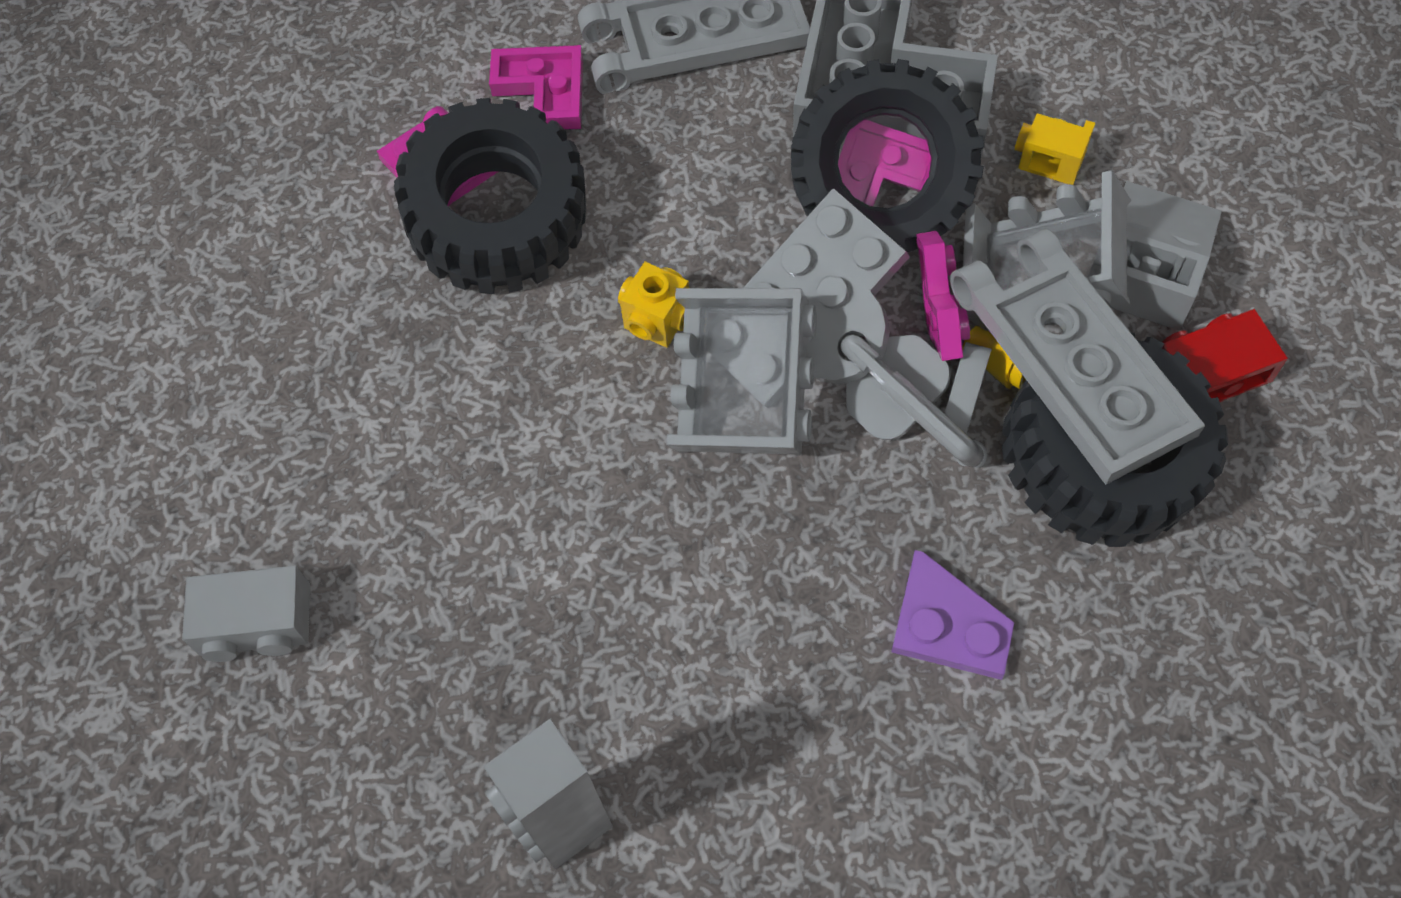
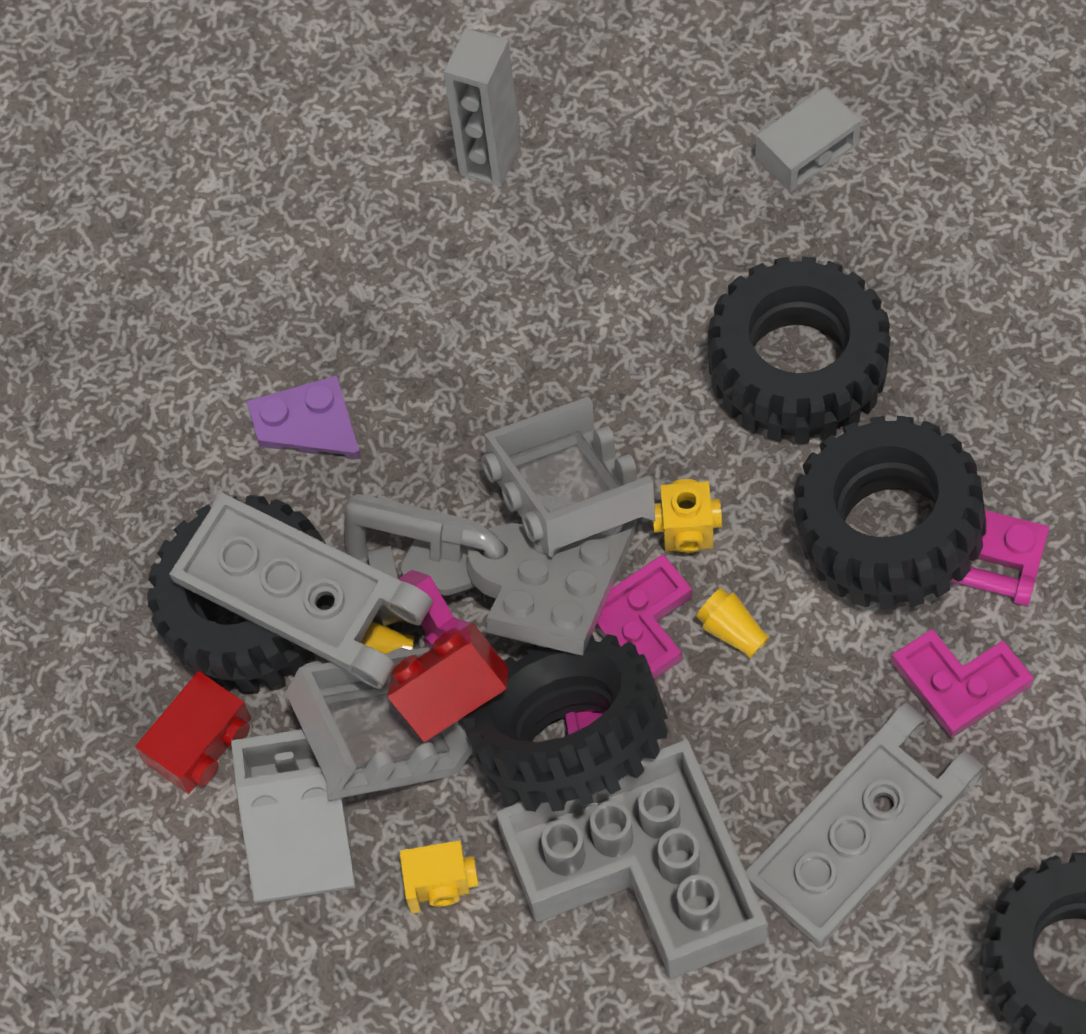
camera: 150 degrees right, 0 degrees up
(423, 332) = (804, 296): none -> black tyre
(683, 215) = (731, 622): none -> yellow cone
(733, 265) = (636, 607): none -> dark pink plate
(972, 219) = (447, 681): none -> red brick

